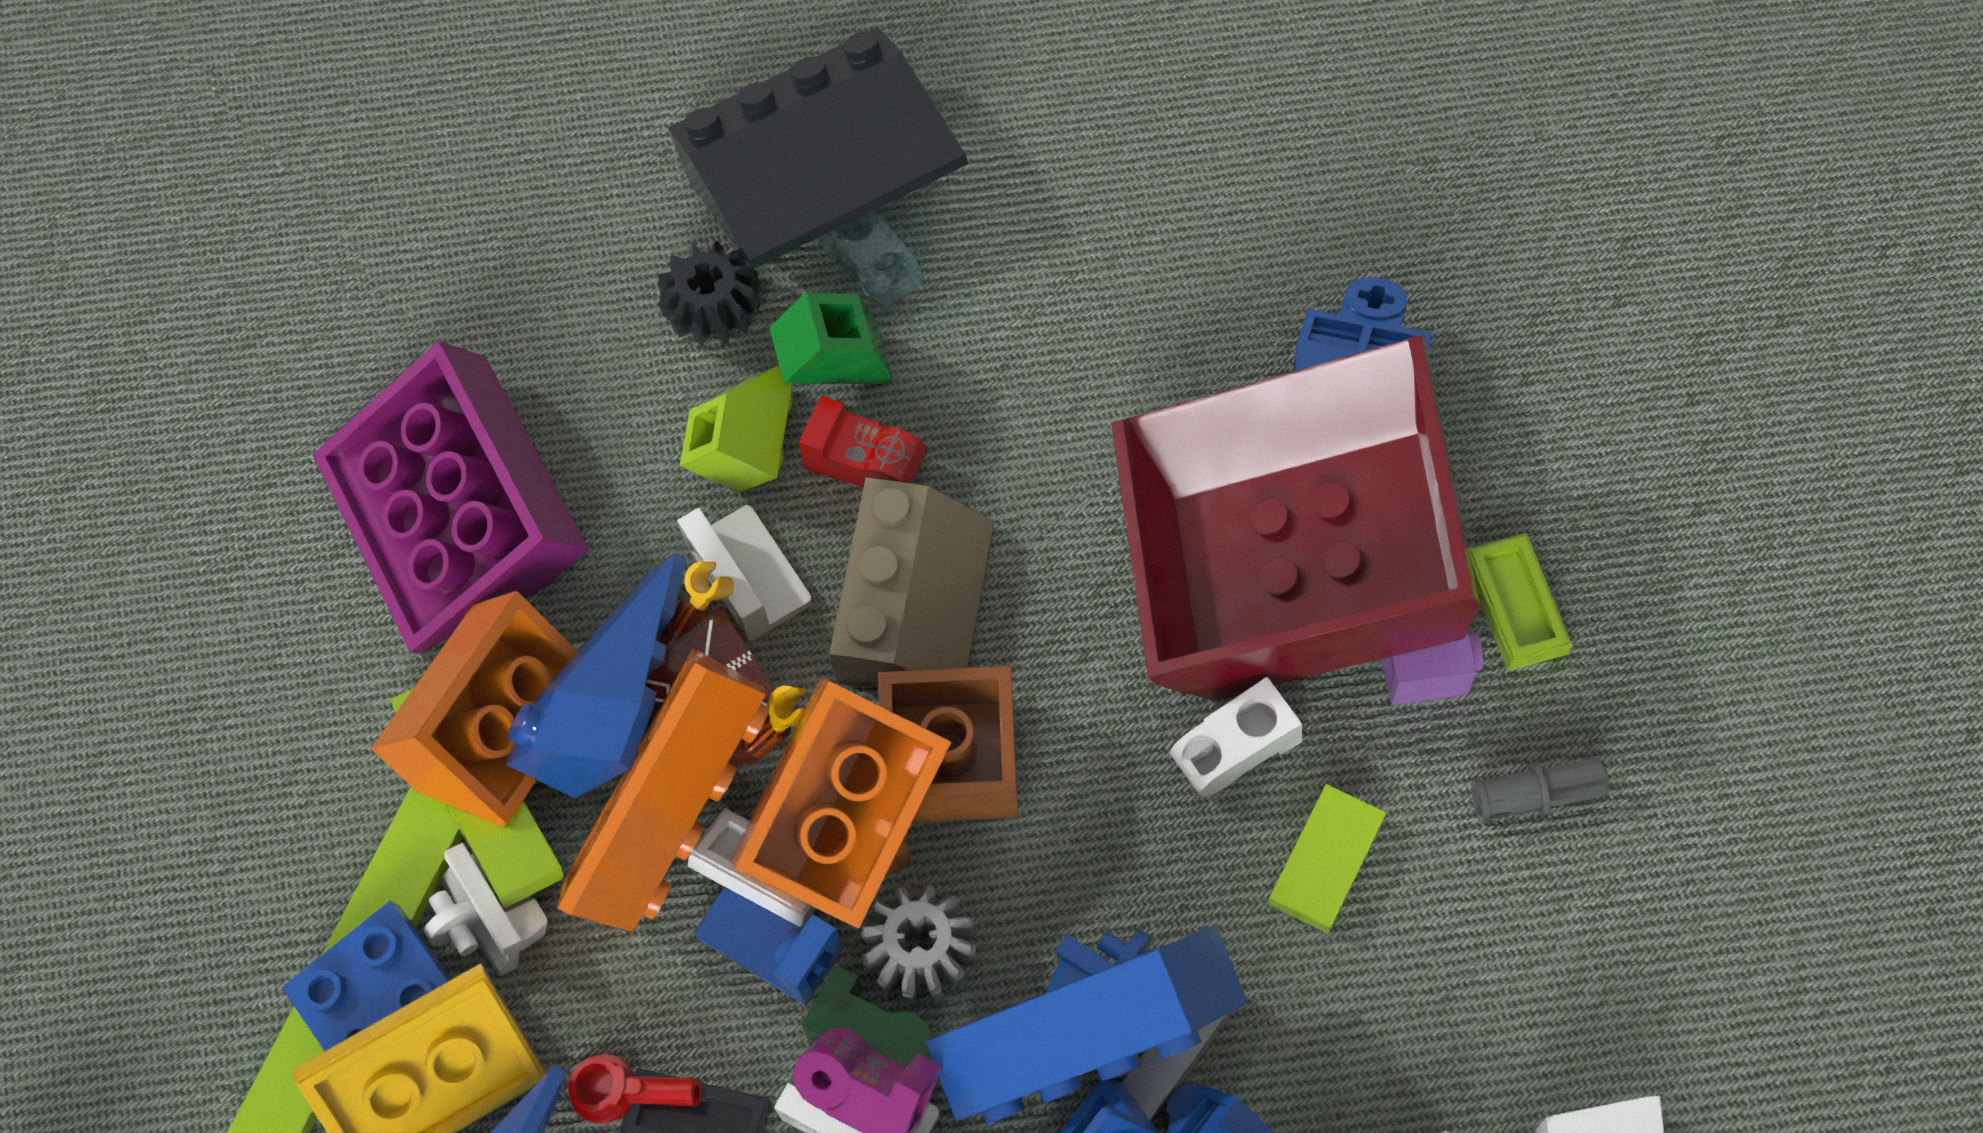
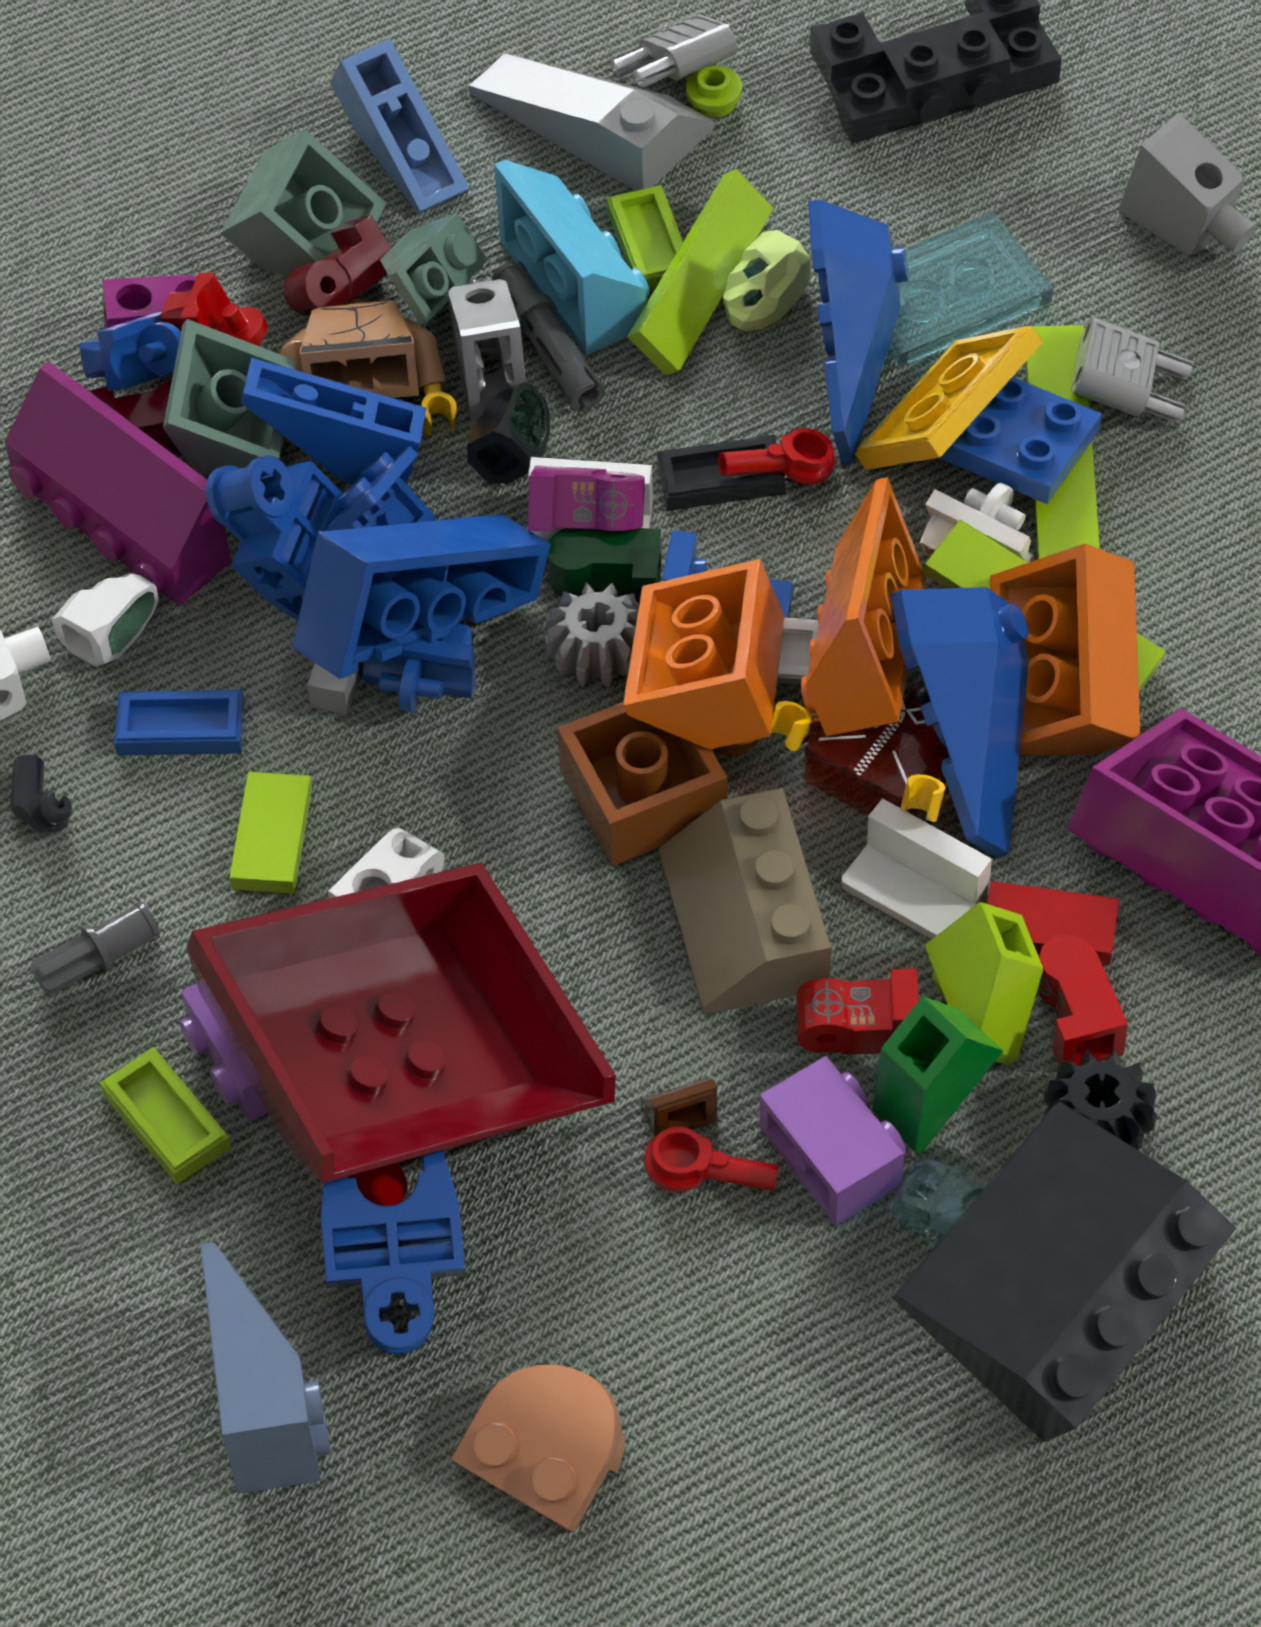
camera: 155 degrees right, 10 degrees down
(224, 1055) = (1119, 369): none -> light grey piece
(649, 482) = (1059, 913): none -> red tile
(669, 386) = (1083, 1000): none -> red leg
(943, 346) = (833, 1139): none -> medium lavender brick
(1055, 433) = (683, 1106): none -> reddish brown slope
(1075, 383) = (682, 1160): none -> red plate
(1285, 197) = (546, 1440): none -> nougat slope
(1381, 1031) = (179, 722): none -> blue tile
(1511, 284) = (267, 1411): none -> sand blue slope
(1560, 988) = (31, 802): none -> black arm

